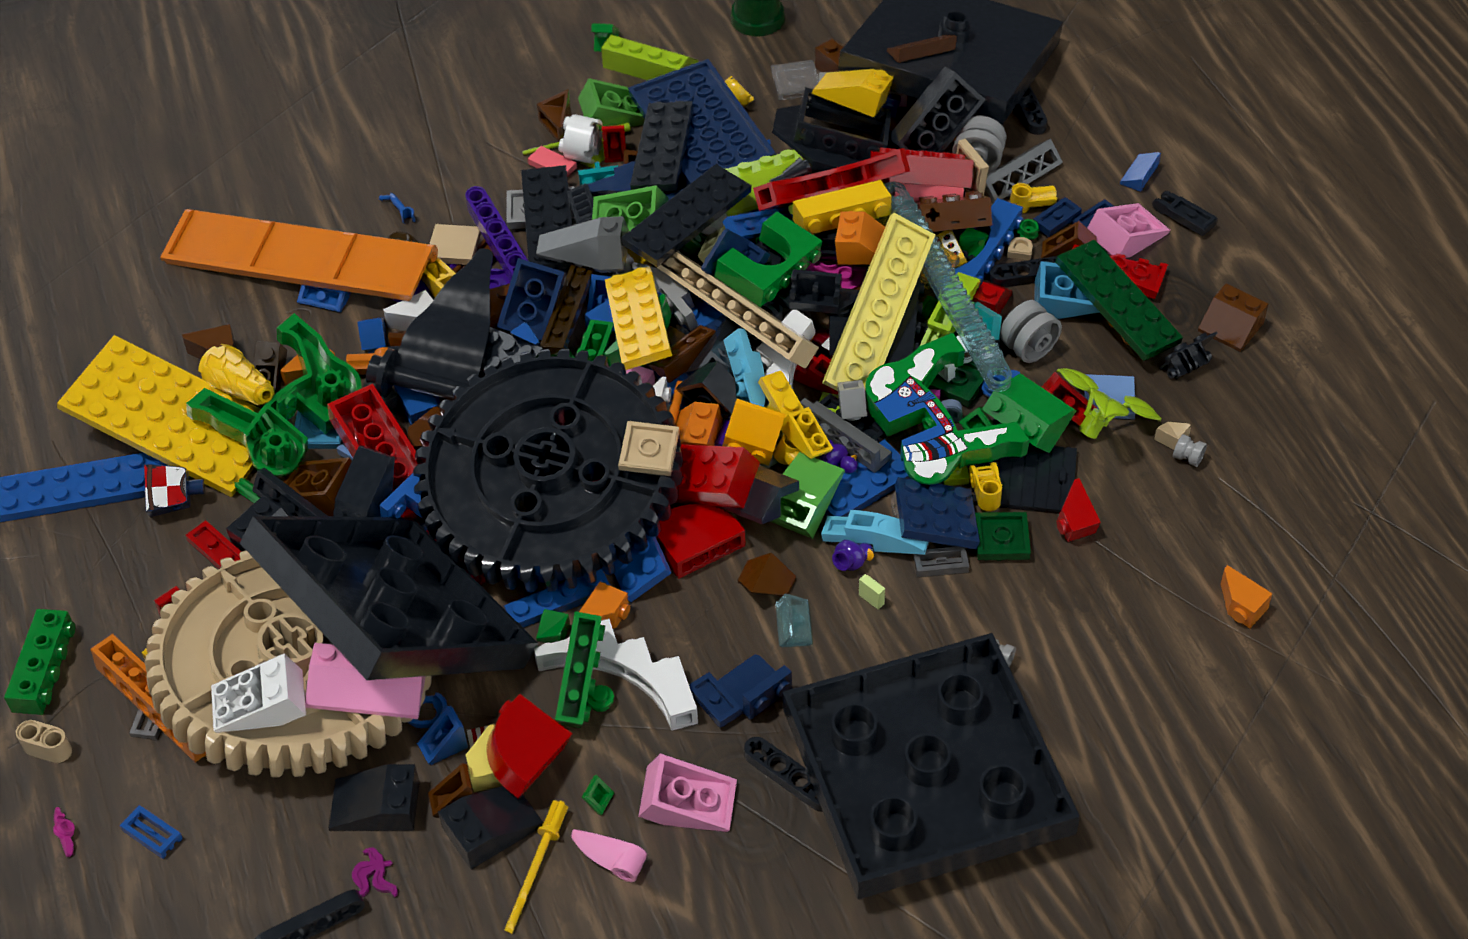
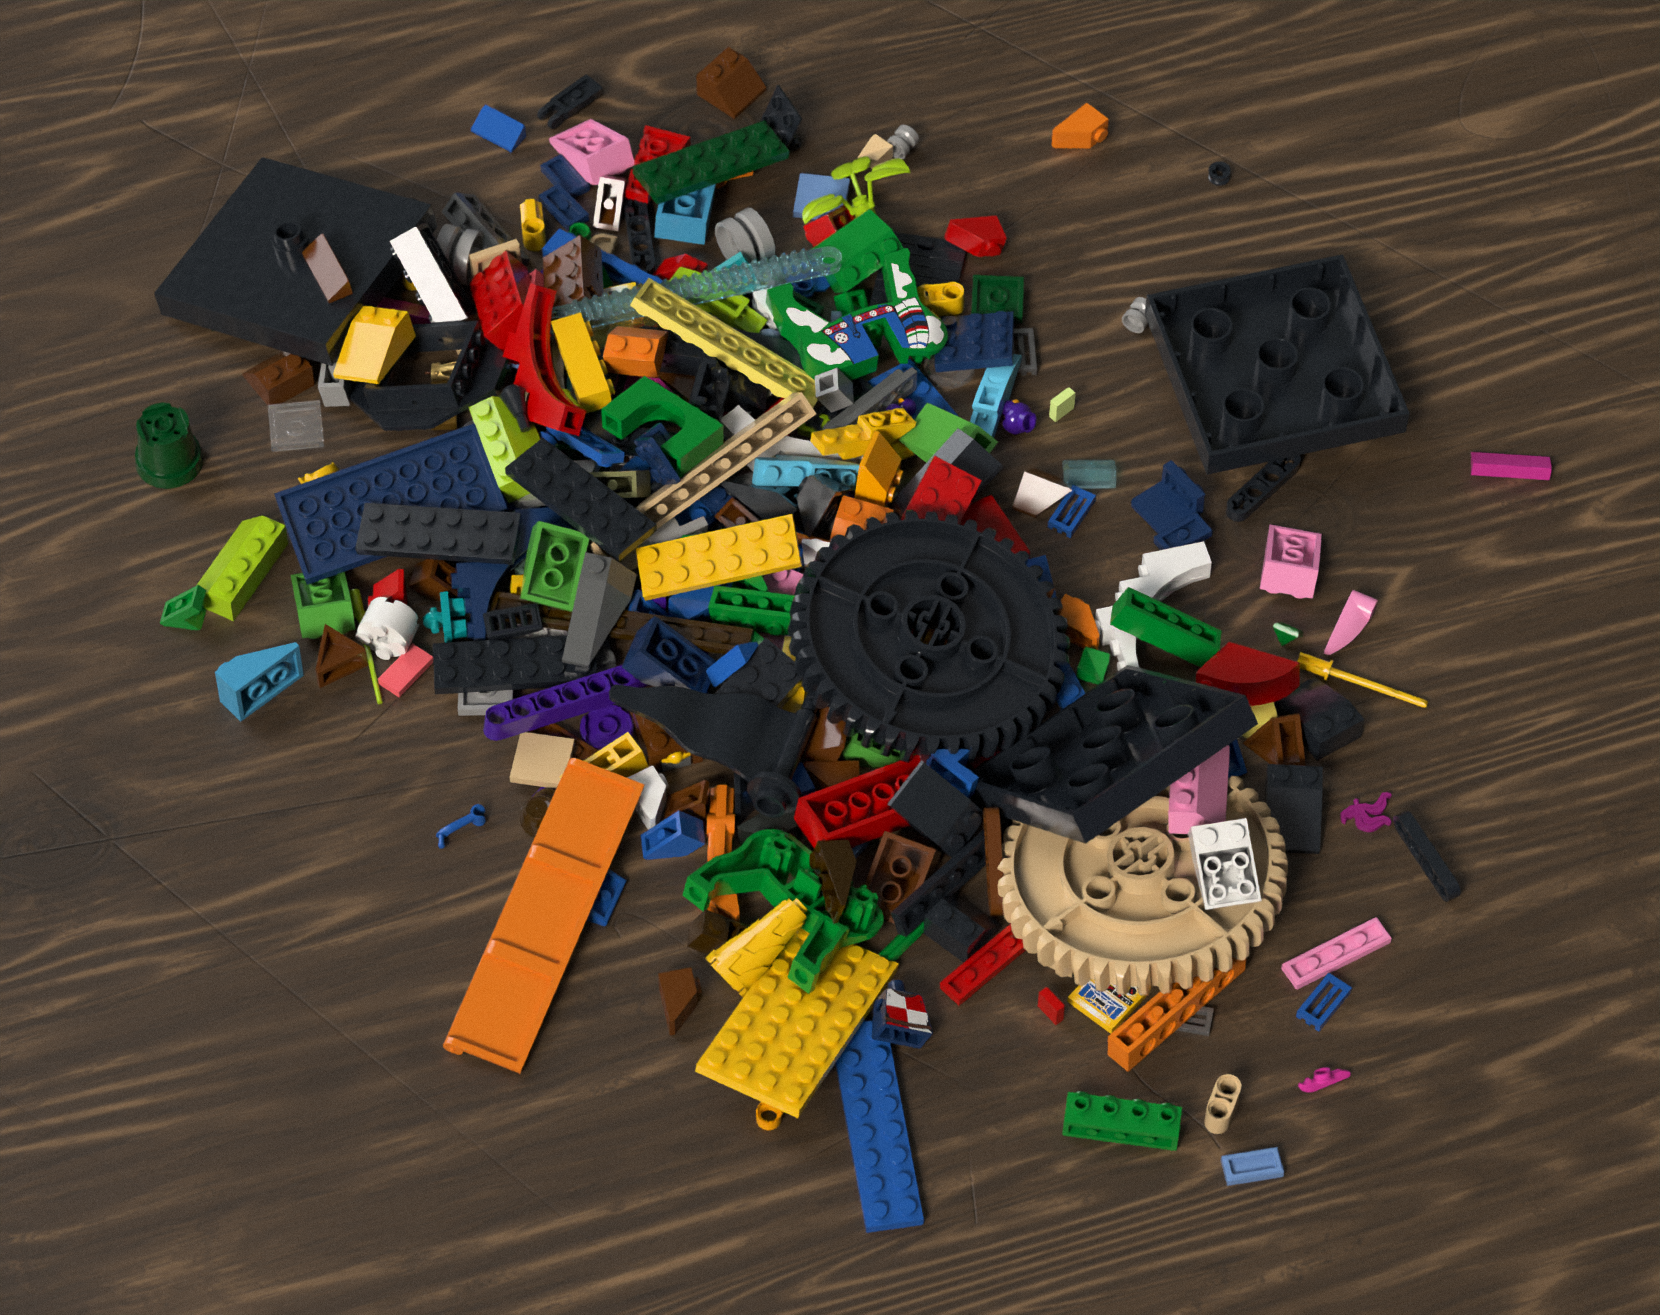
camera: 90 degrees left, 5 degrees up
(206, 844) = (1336, 953): none -> bright pink tile
(298, 420) = (834, 866): none -> dark brown slope
(527, 68) = (257, 678): none -> dark azure slope
(649, 448) = (934, 531): tan tile -> none
(741, 611) = (1062, 526): none -> blue tile
(1219, 723) = (1219, 180): none -> black bush

